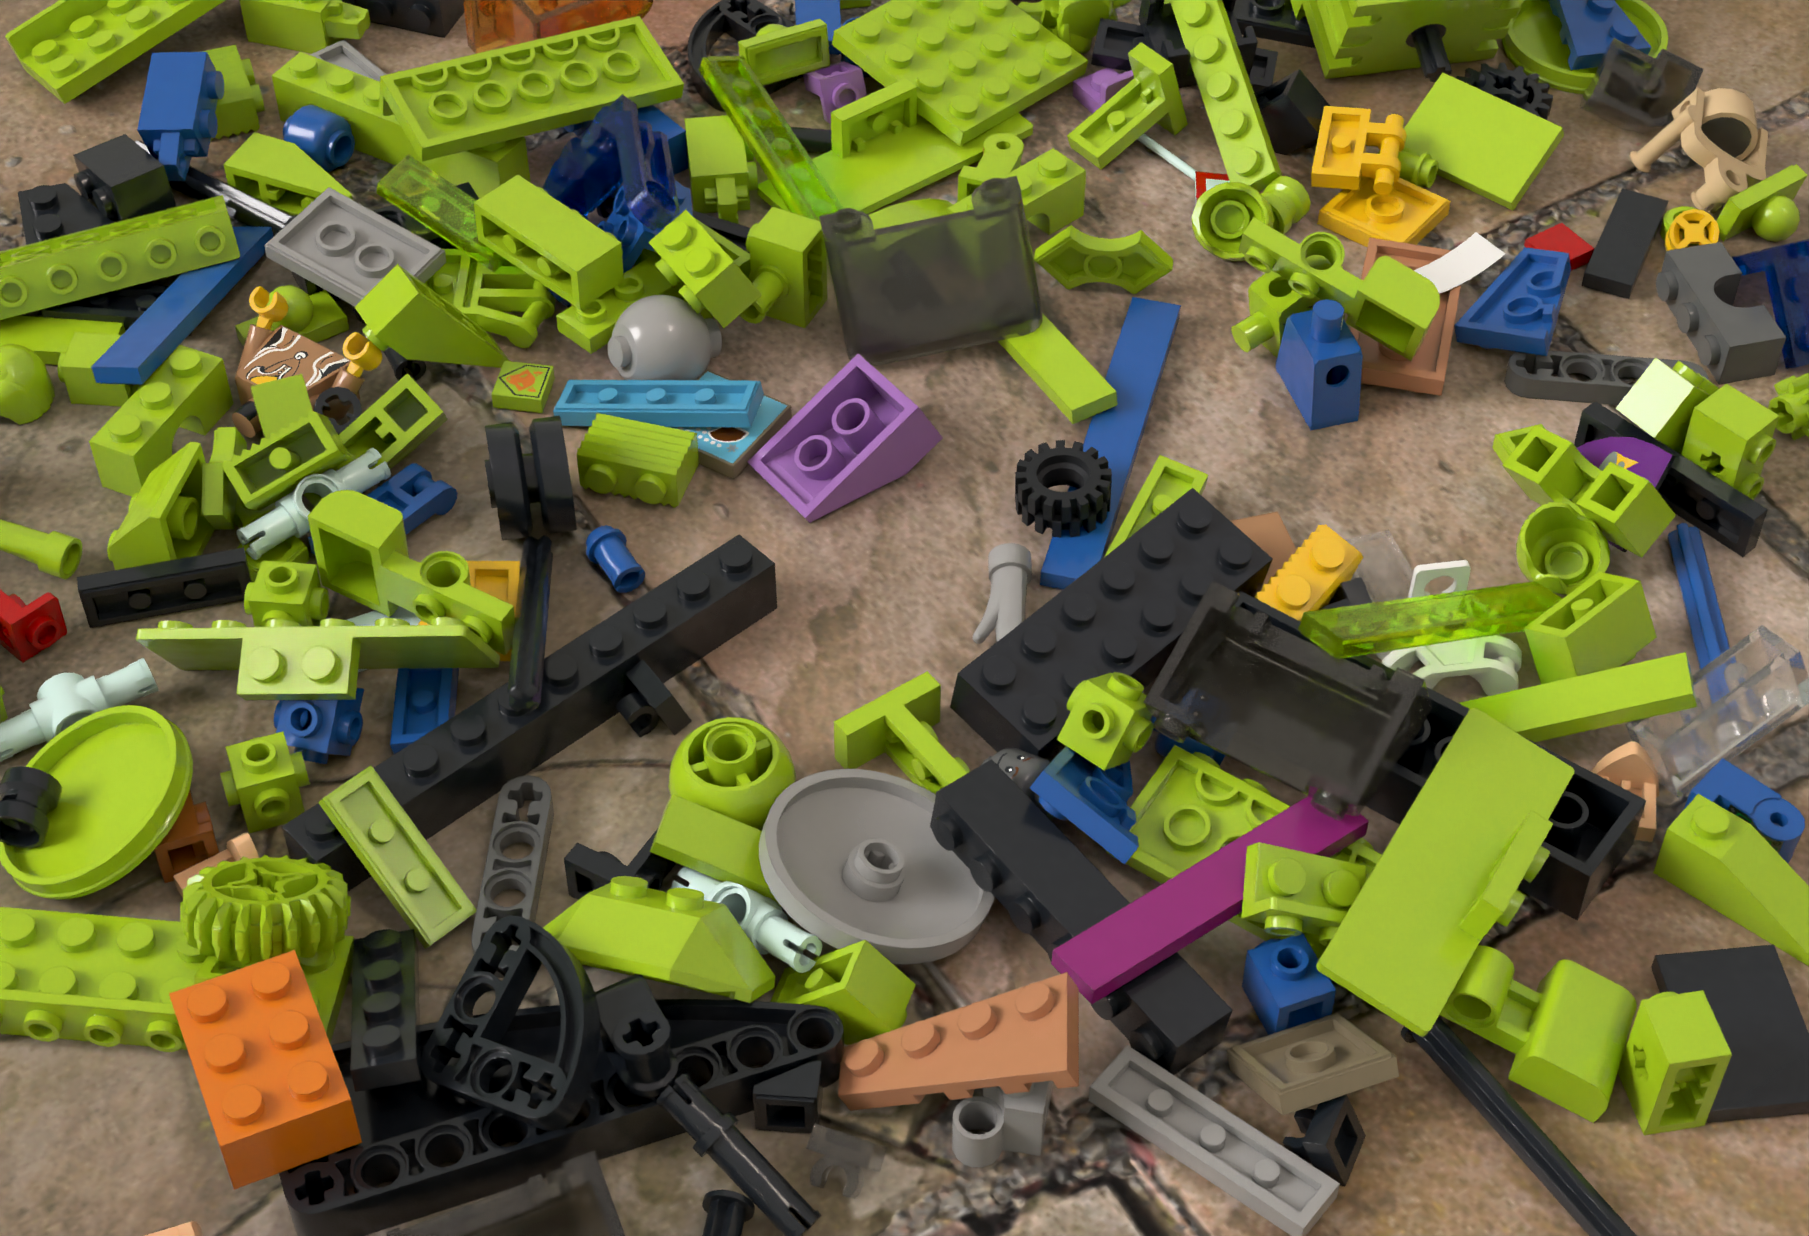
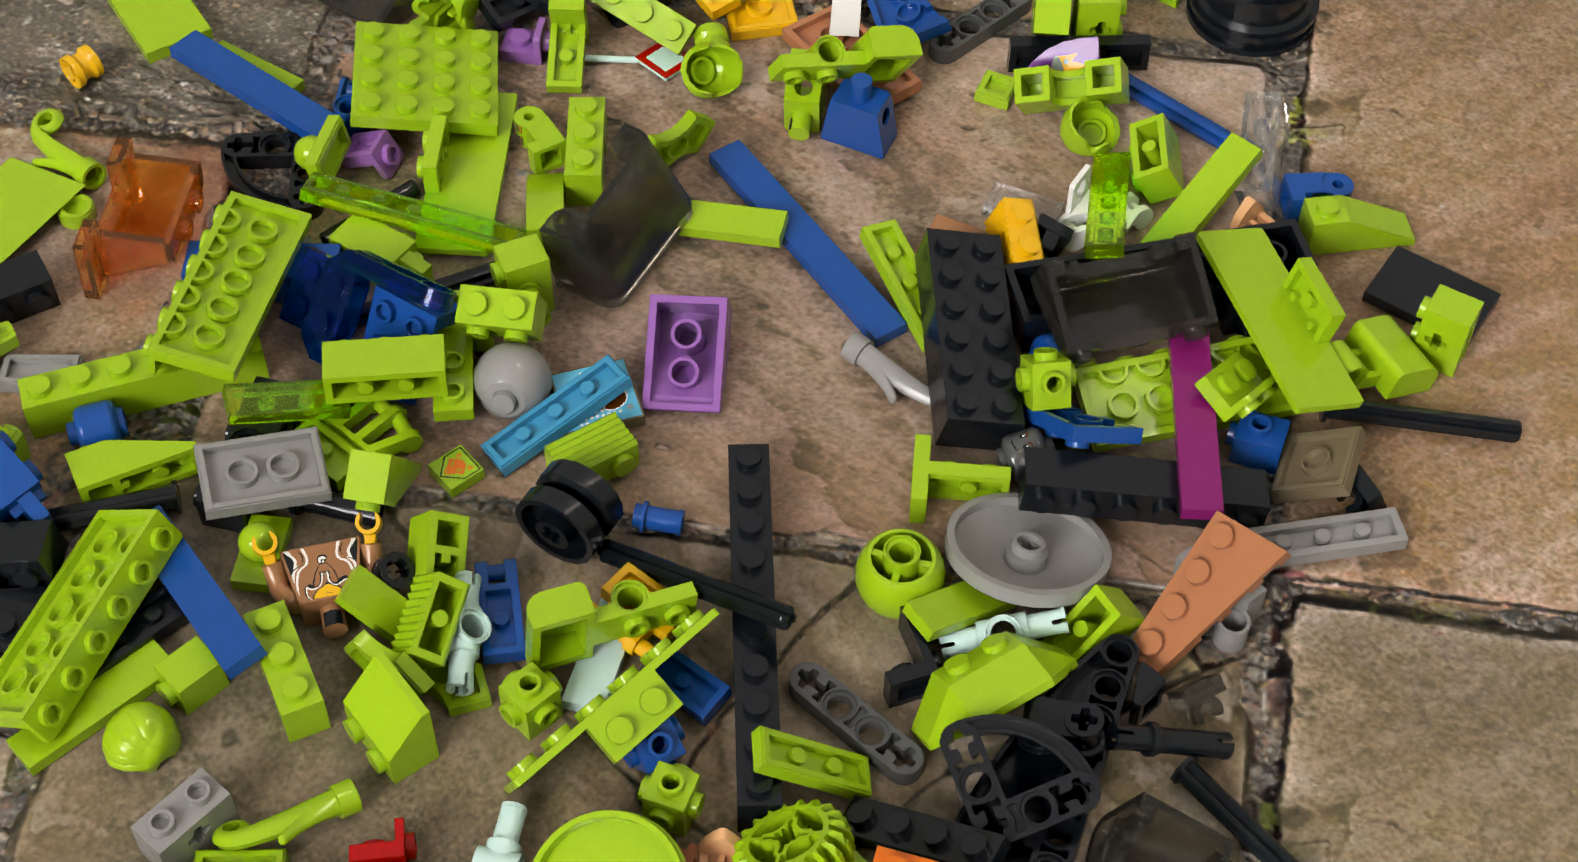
camera: 50 degrees left, 5 degrees up
(164, 587) = (442, 757): black tile -> none
(651, 703) = (797, 571): black tile -> none
(1063, 509) = (835, 268): black tyre -> none

